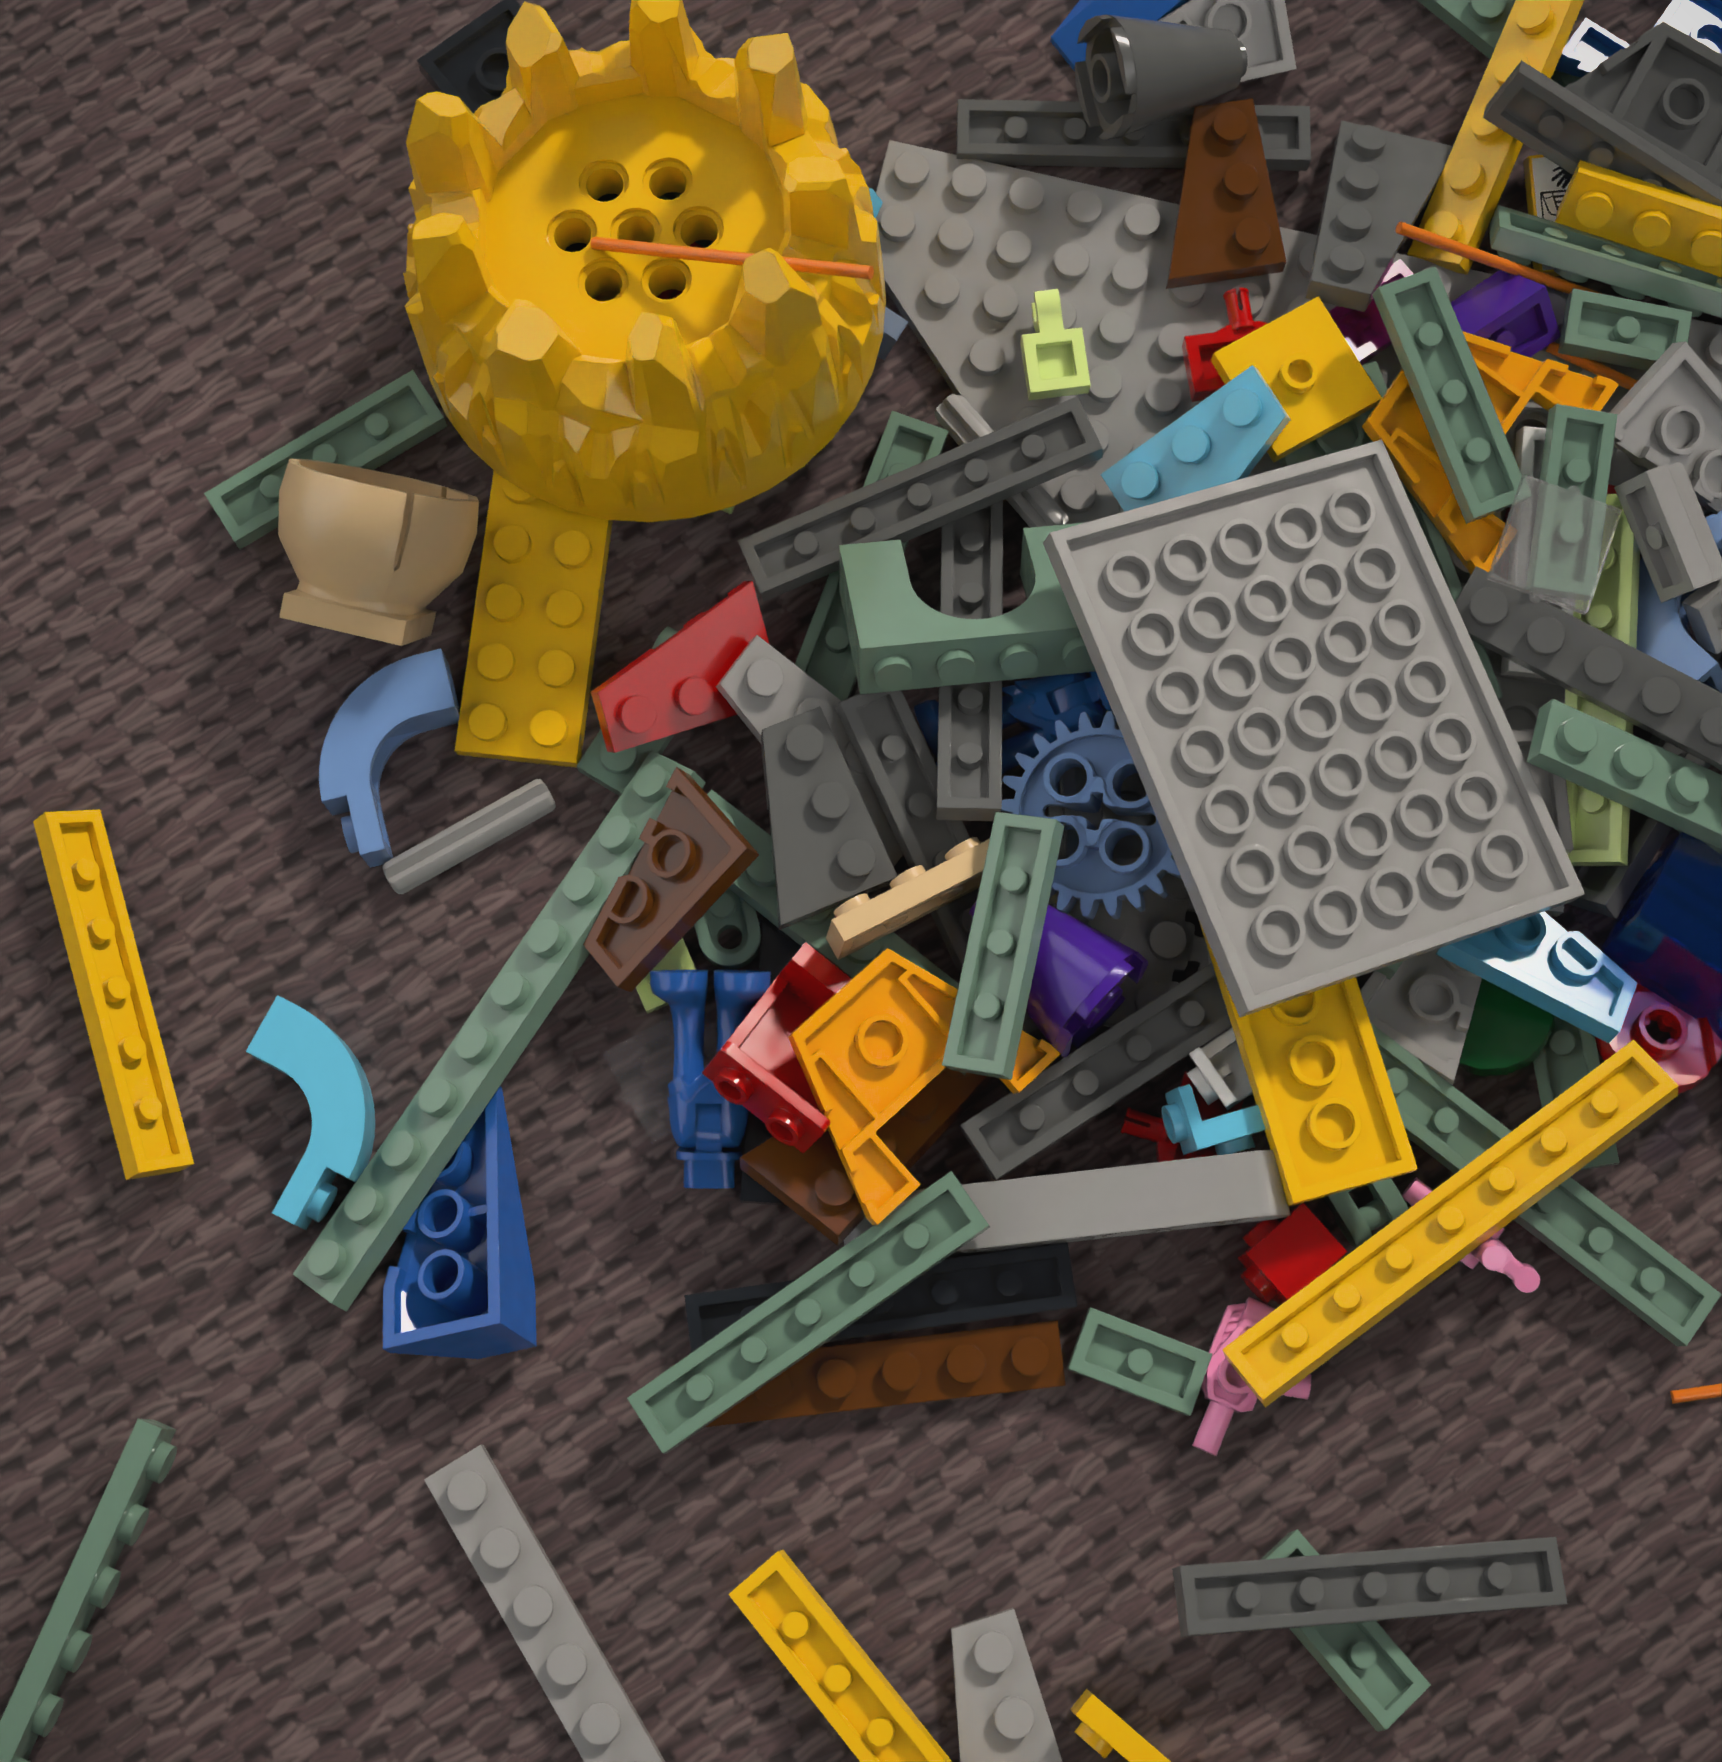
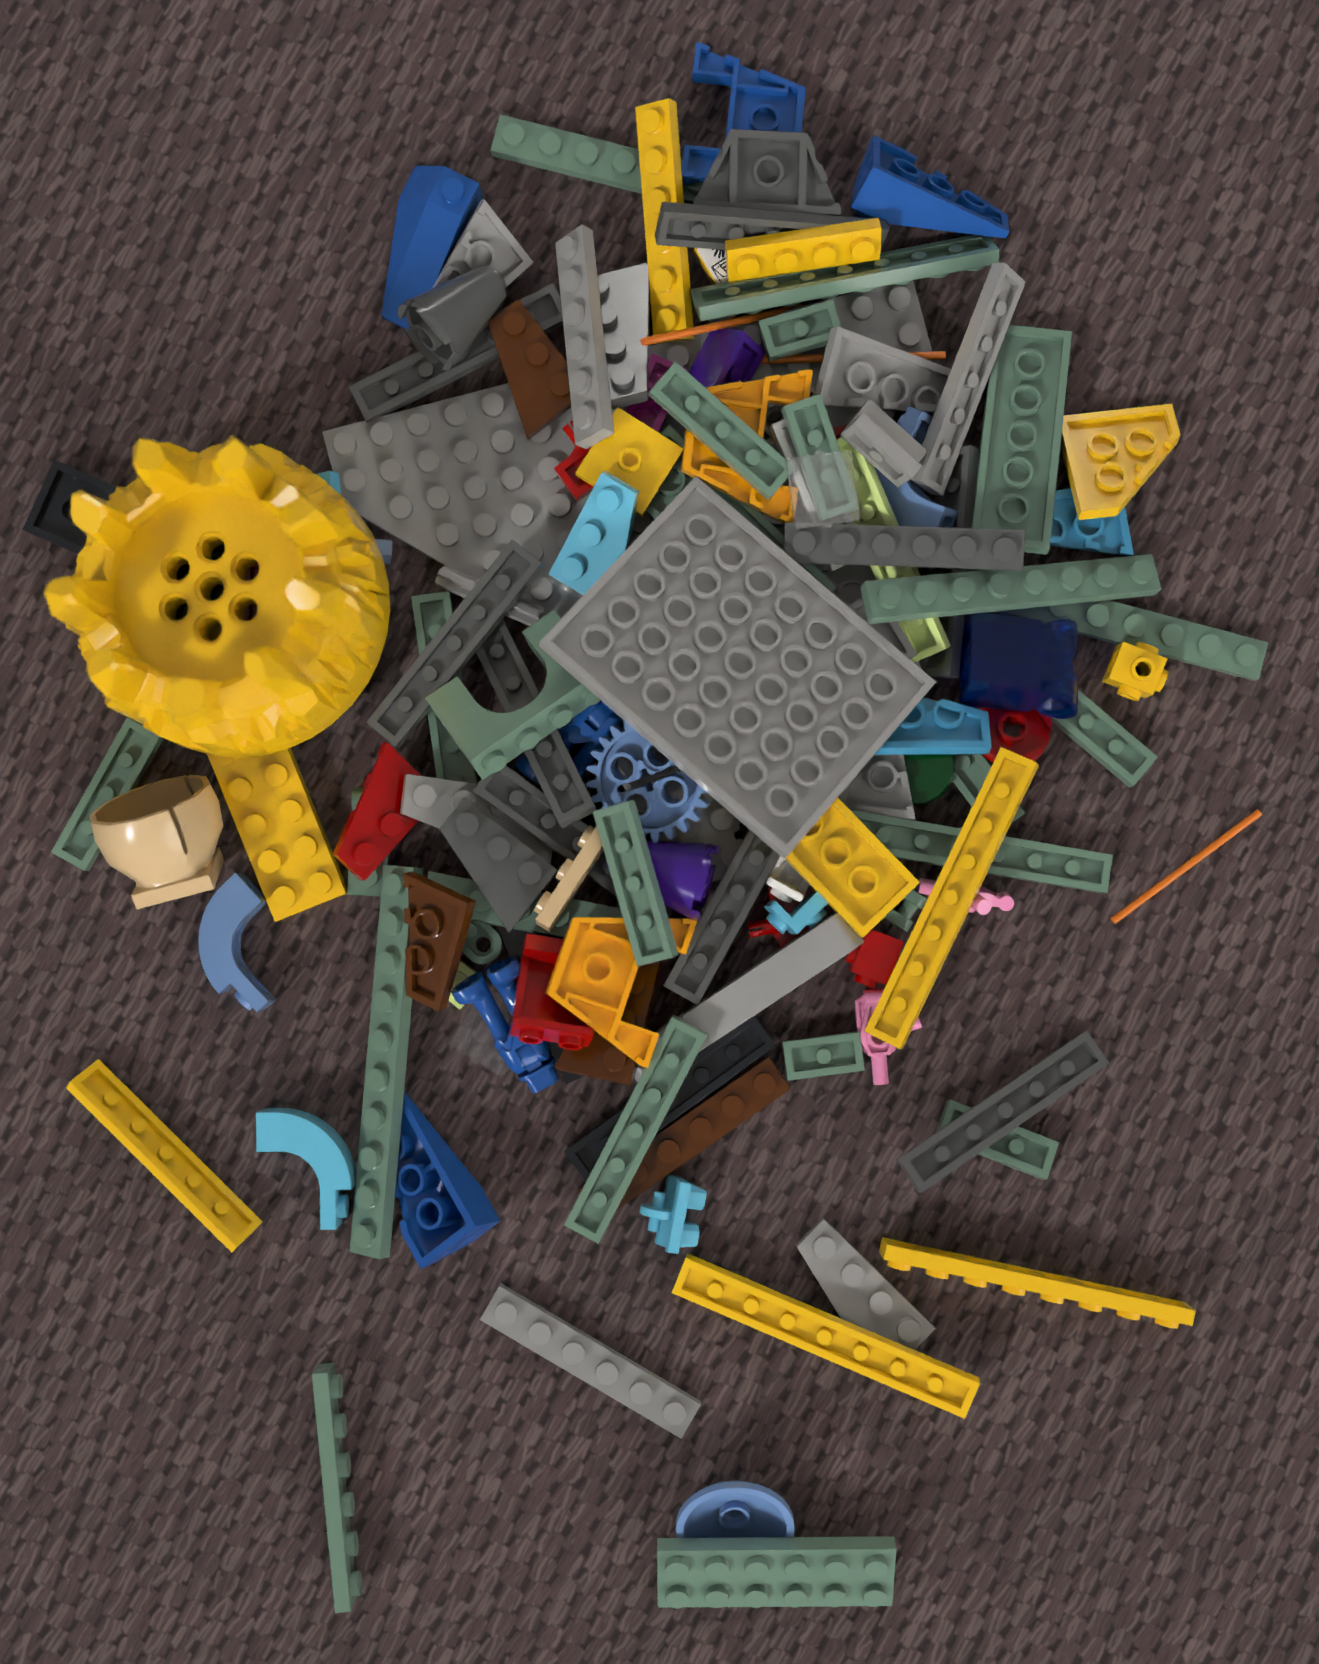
camera: 25 degrees left, 10 degrees up
(469, 836) = (309, 964): light grey axle -> none
(727, 257) = (275, 582): orange piece -> none
(789, 1470) = (669, 1212): none -> medium azure hips
(1053, 355) = (486, 518): yellowish green plate -> none
(1317, 191) = (584, 338): none -> light grey plate

